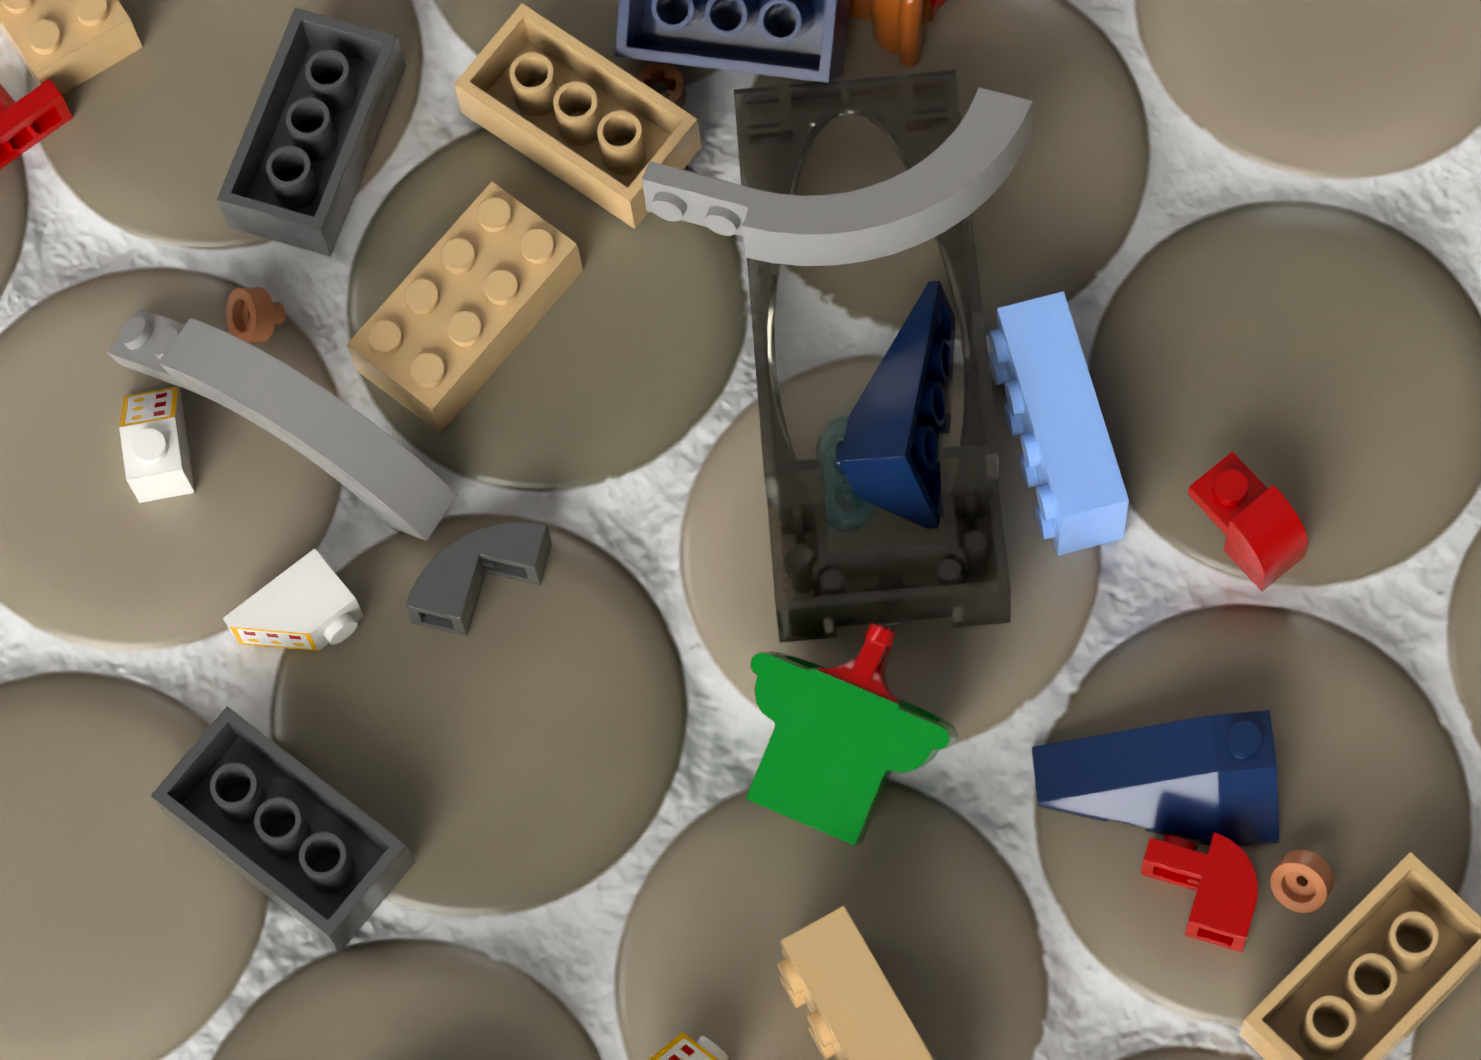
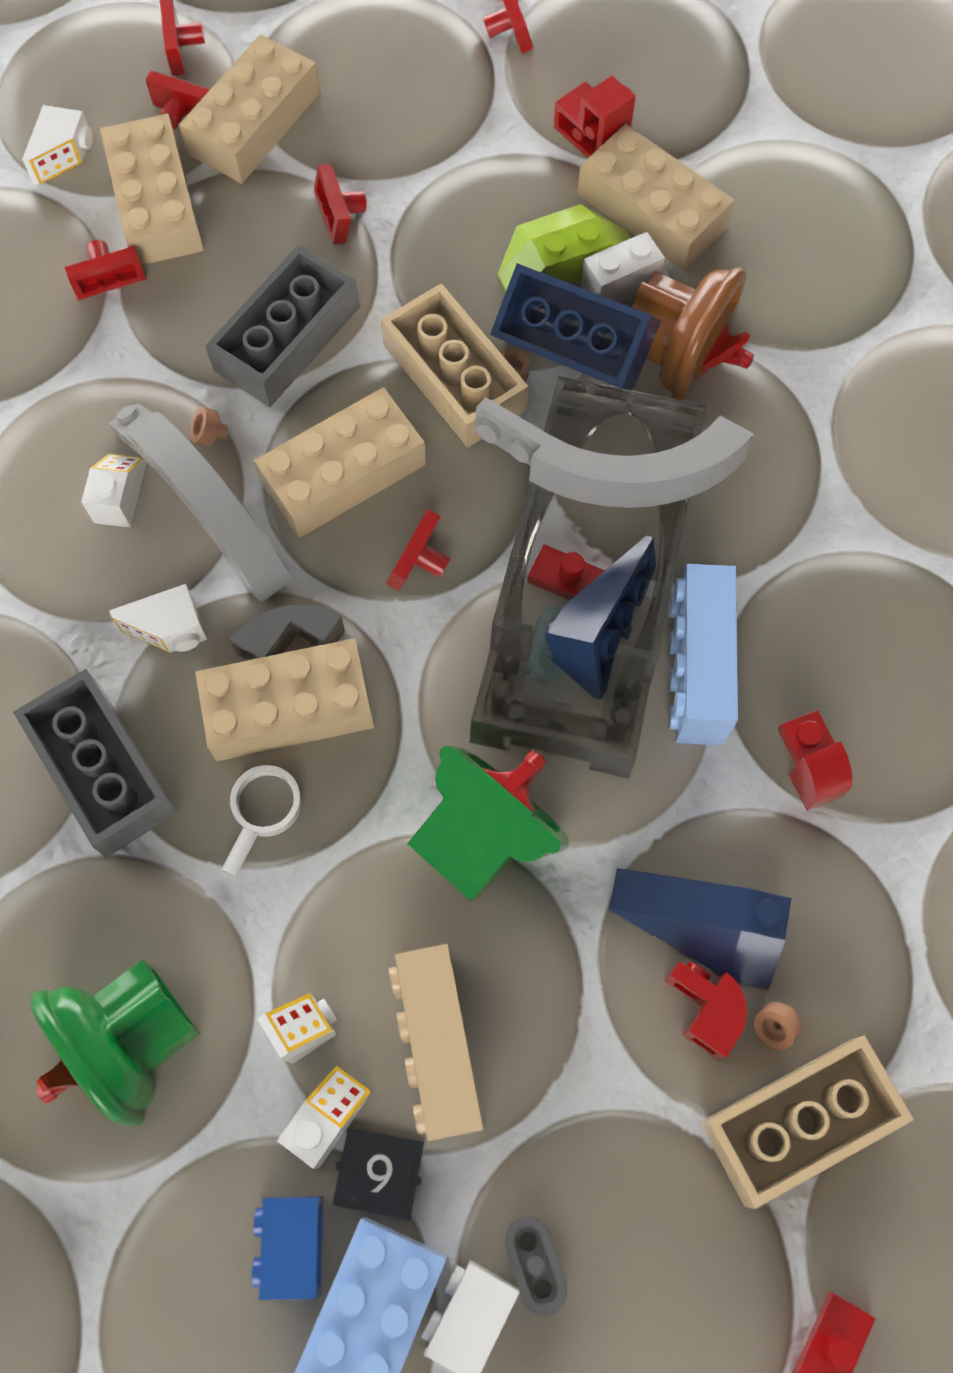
camera: 10 degrees right, 0 degrees up
(509, 663) = (283, 700): none -> tan brick
(523, 855) = (250, 832): none -> white piece
(619, 403) = (419, 553): none -> red tile
(829, 368) = (562, 572): none -> red tile

